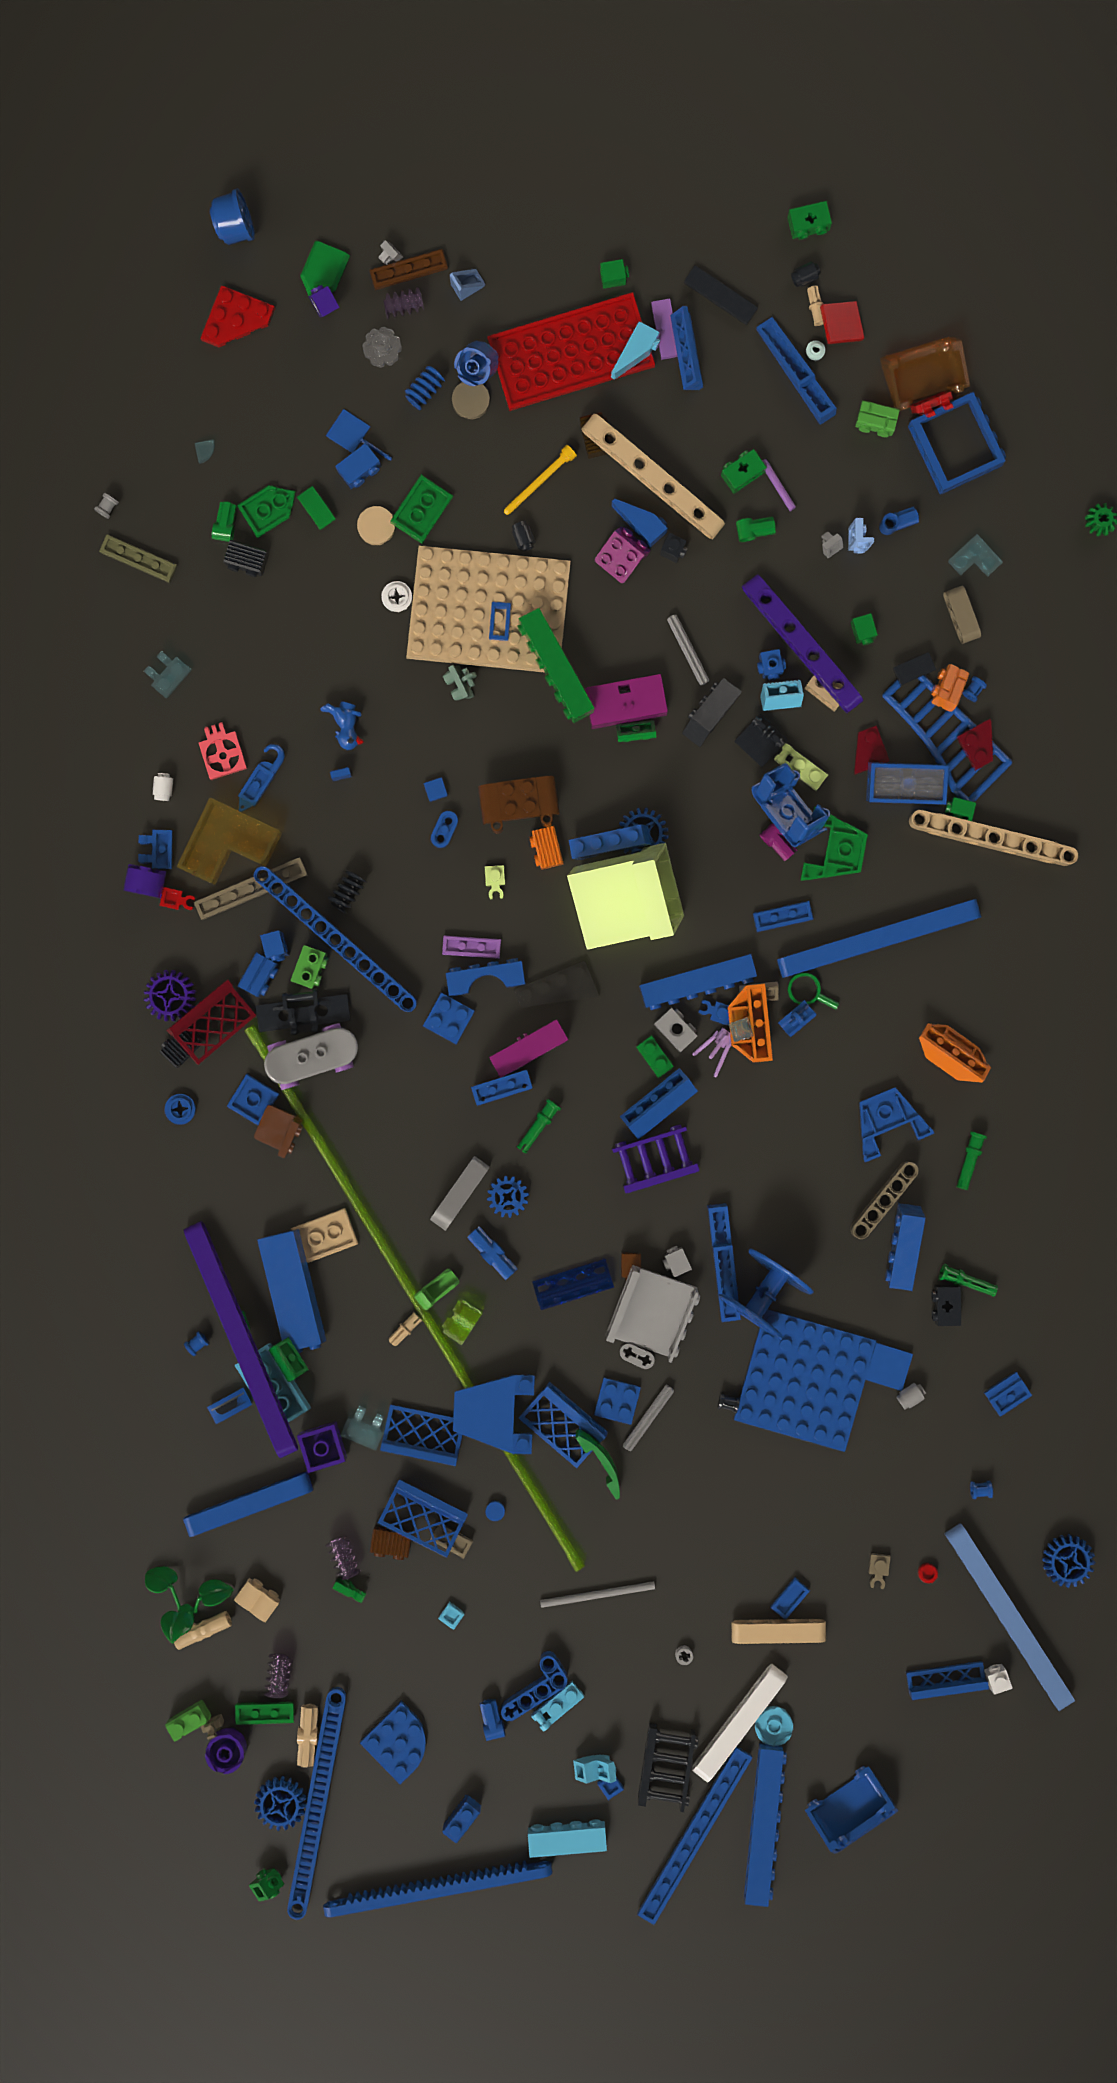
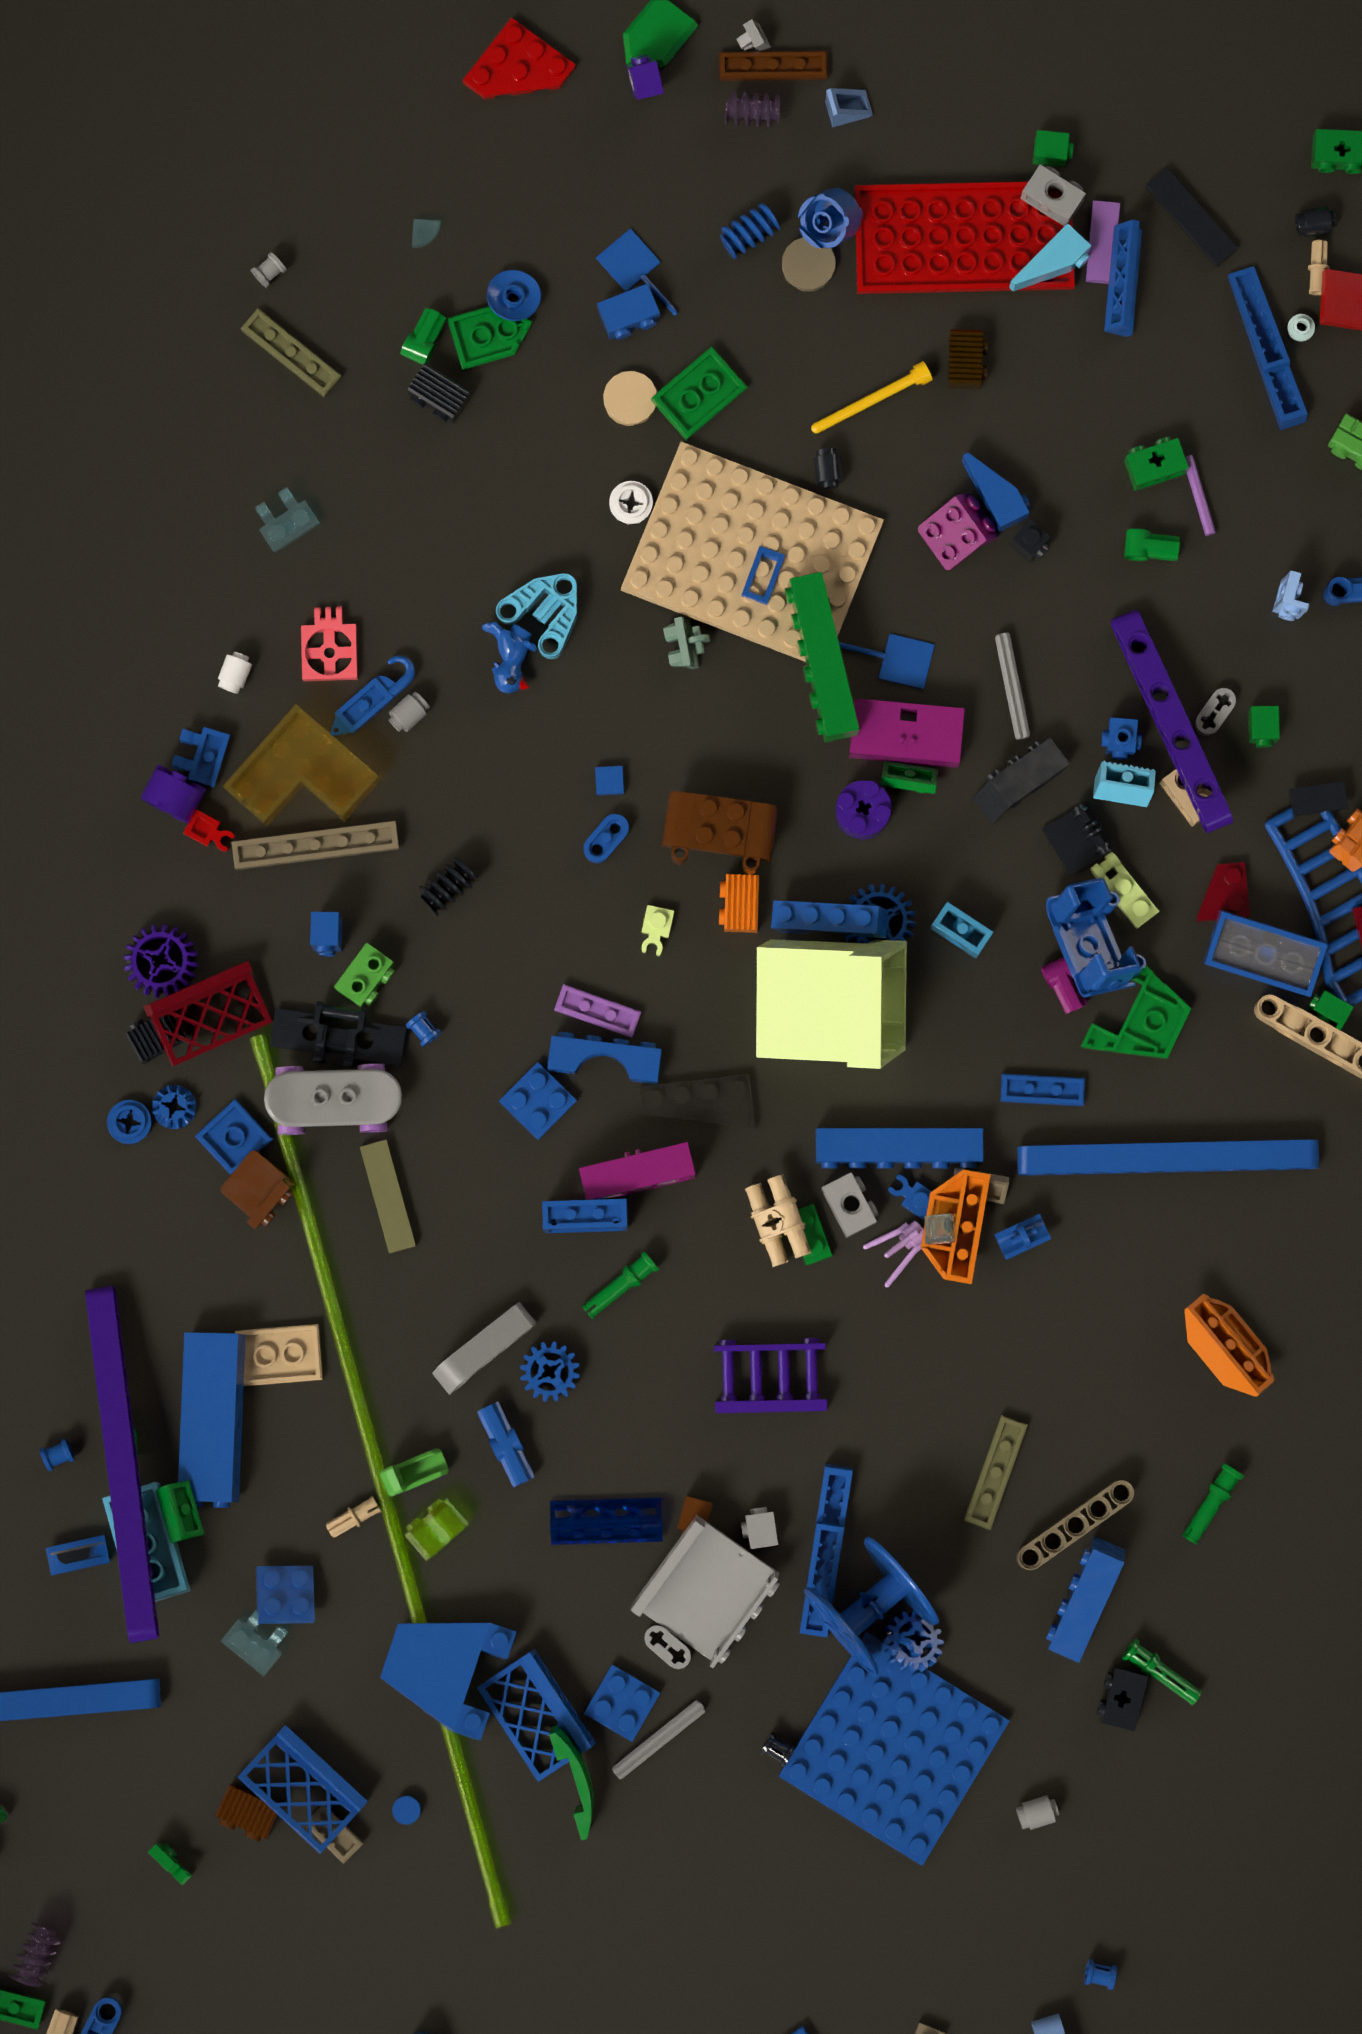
camera: 15 degrees right, 5 degrees down
(213, 1097) = (179, 1118): none -> blue gear
(257, 1599) = (37, 1839): tan brick -> none
(258, 975) = (292, 967): blue brick -> none
(277, 469) = (513, 284): none -> blue dish
(287, 781) = (408, 712): none -> light grey brick
(316, 507) = (554, 351): green slope -> none
(322, 1446) = (190, 1648): dark purple brick -> none
(327, 934) = (403, 937): blue beam -> none
(340, 774) = (484, 722): blue tile -> none
(343, 1558) = (174, 1814): clear purple piece -> none
(346, 679) = (528, 596): none -> medium azure connector
(358, 991) = (423, 1029): none -> blue bush
(367, 1110) = (387, 1196): none -> olive tile
(374, 1393) = (285, 1594): none -> blue plate
(382, 347) = (710, 171): clear plant -> none
(414, 1450) = (317, 1691): blue fence -> none
(451, 1615) = (302, 1941): medium azure tile -> none
(597, 1594) = (517, 1970): light grey piece -> none
(610, 653) = (904, 660): none -> blue piece
(611, 772) = (857, 824): none -> dark purple brick
(630, 313) = (1058, 209): none -> light grey brick
(635, 1045) = (766, 1215): none -> tan pin
(653, 476) = (1029, 437): tan beam -> none
(658, 1103) = (826, 1290): blue brick -> none
(700, 824) = (961, 930): none -> dark azure brick
(796, 1314) = (912, 1642): none -> blue gear
(820, 997) = (1062, 1215): green piece -> none
(821, 1179) = (995, 1472): none -> olive tile
(831, 544) = (1250, 597): light grey tile -> none
(833, 630) = (1210, 708): none -> light grey beam
(885, 1113) = (1106, 1404): blue wing -> none
(889, 1366) = (1017, 1762): blue tile -> none
(1007, 1393) = (1174, 1848): blue plate -> none

